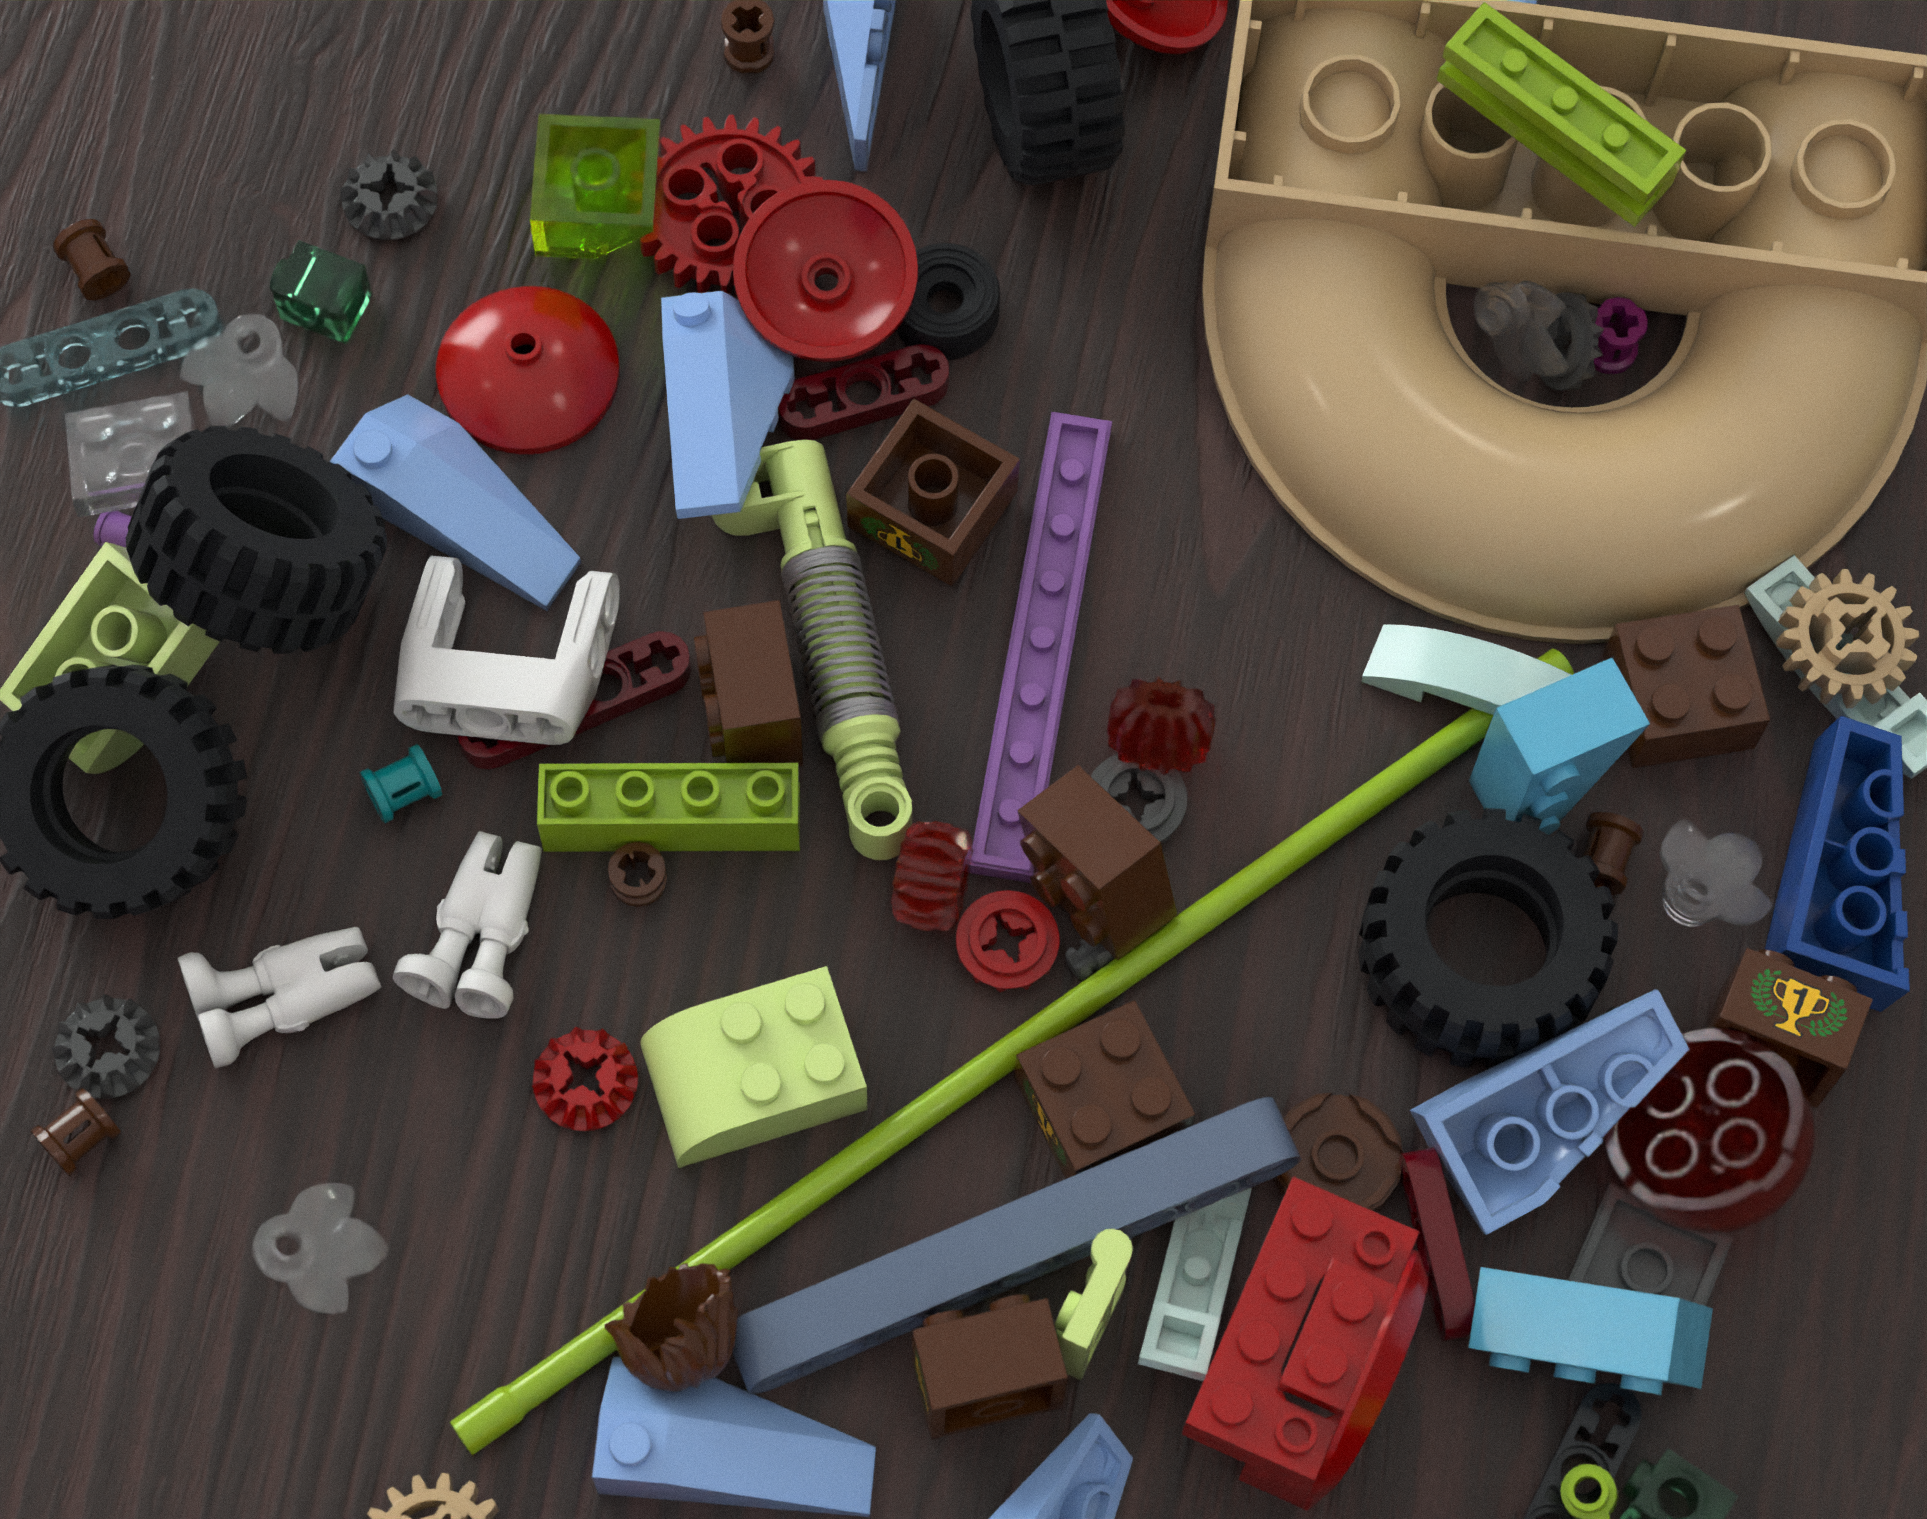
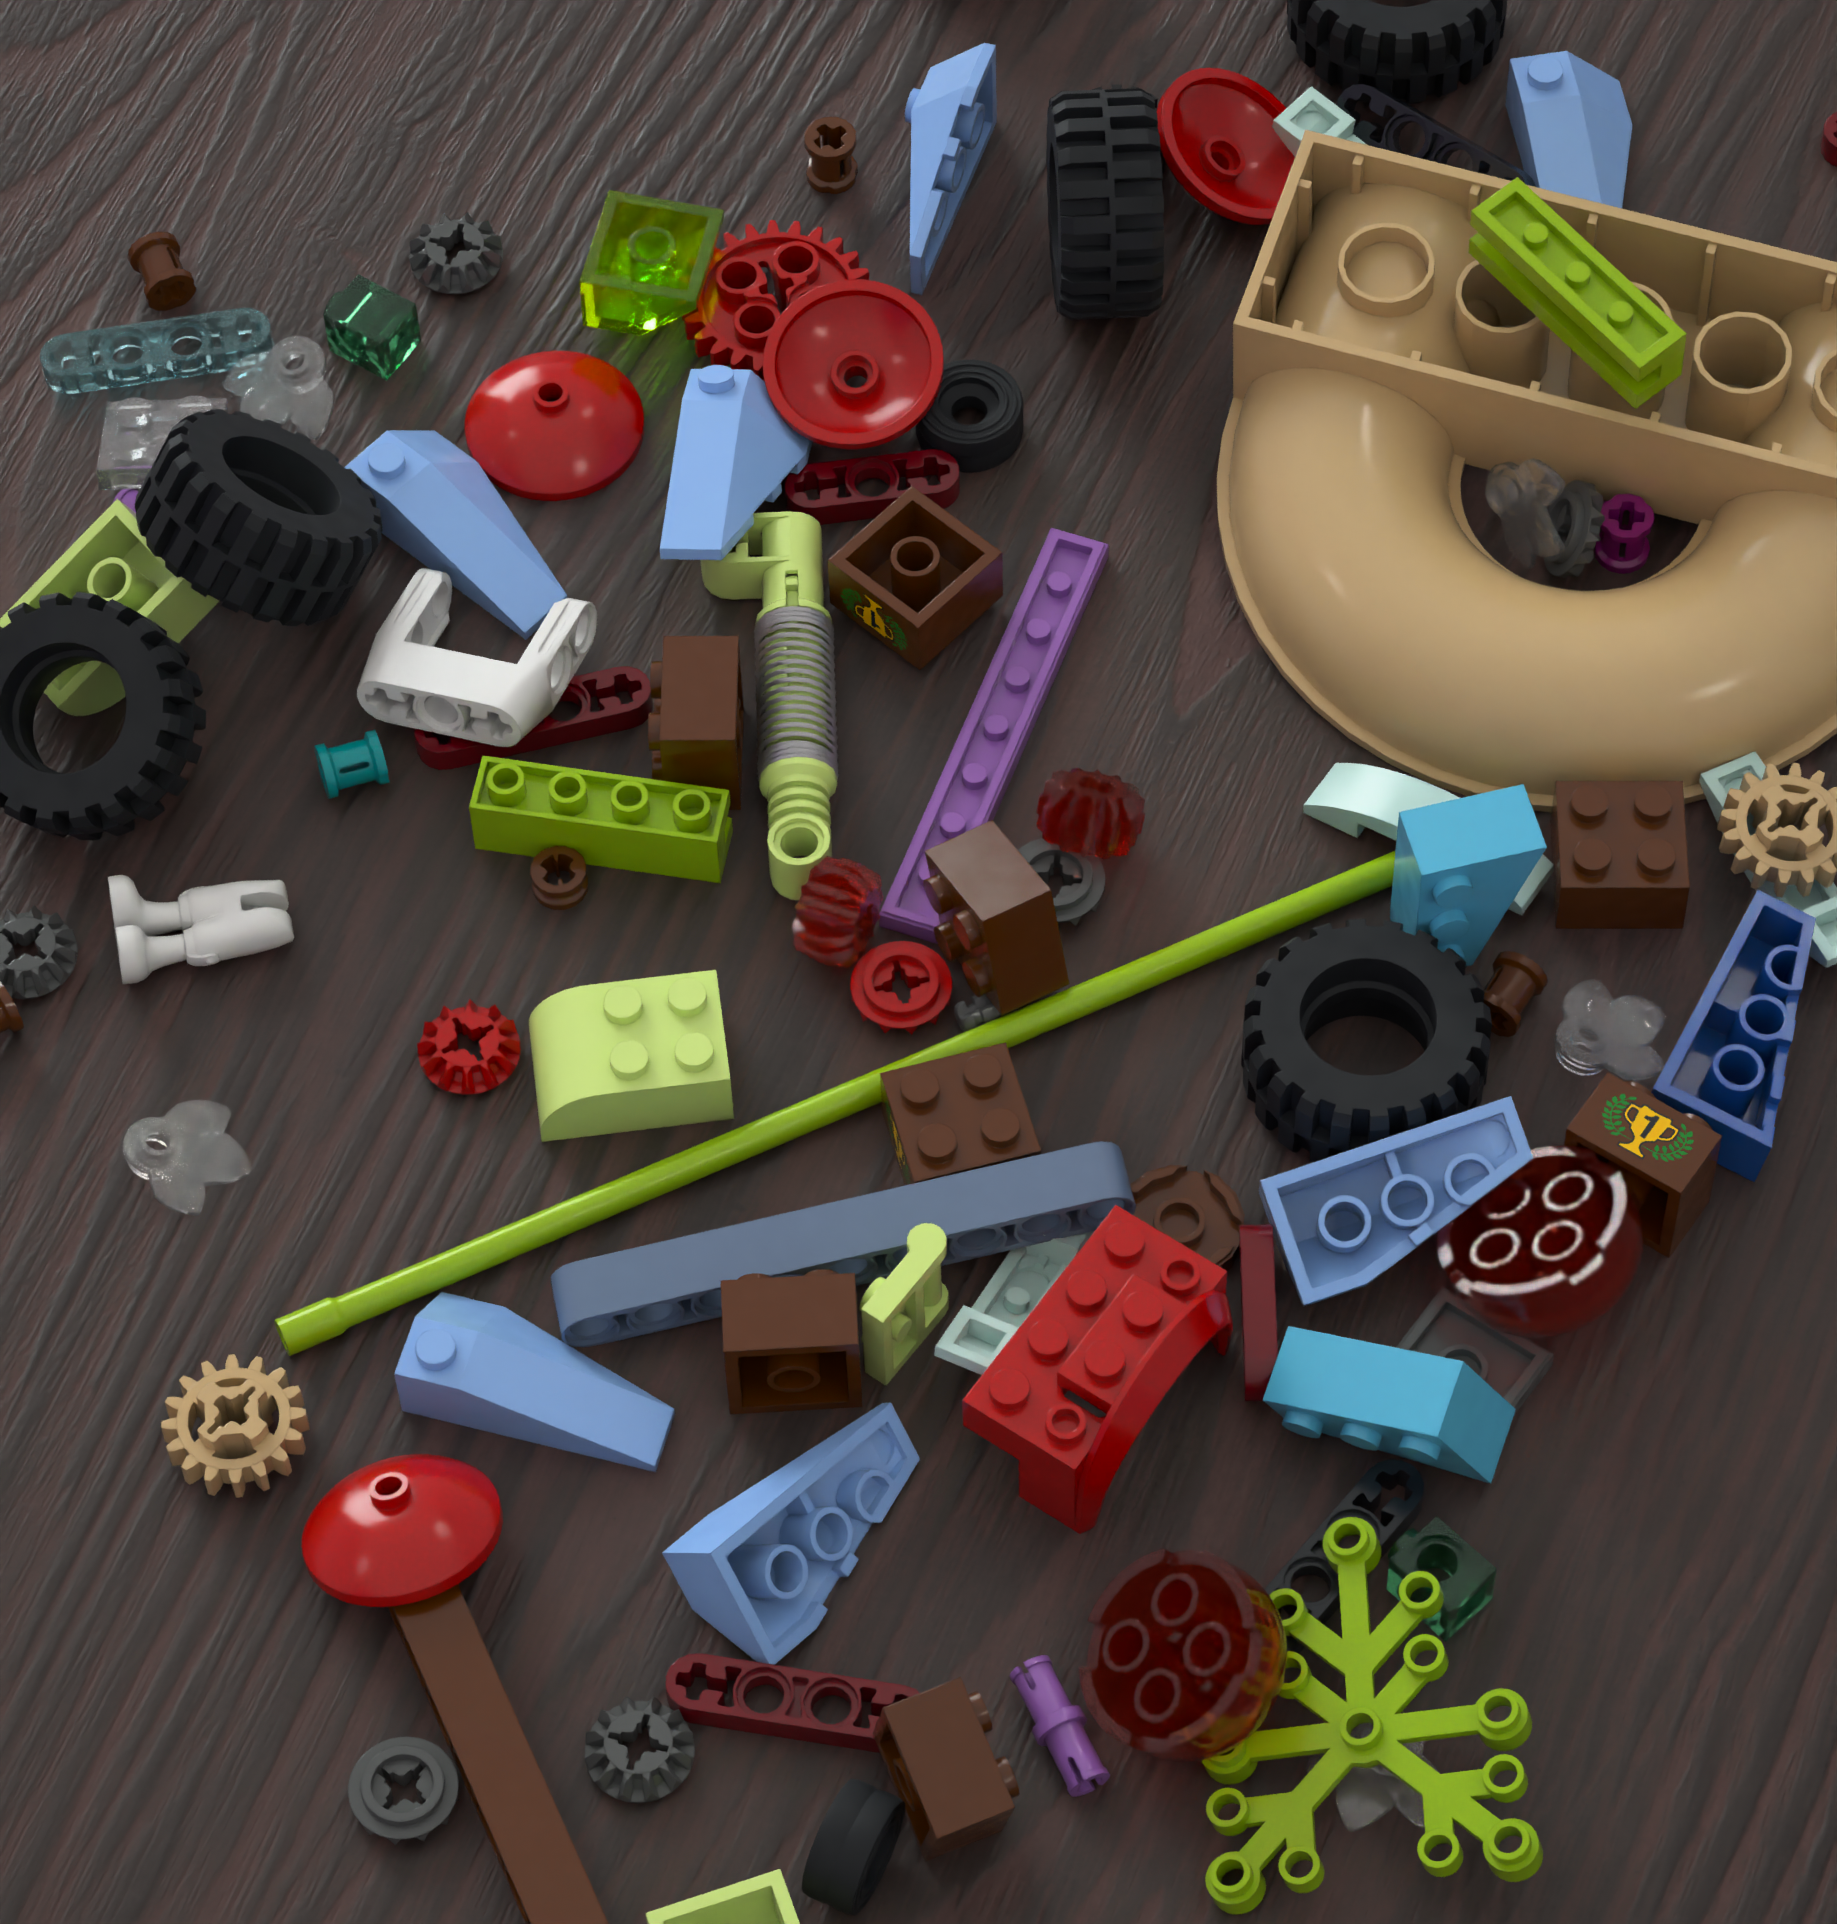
camera: 15 degrees right, 10 degrees down
(474, 905) = (409, 877): white piece -> none
(678, 1328) = (505, 1263): reddish brown hair -> none

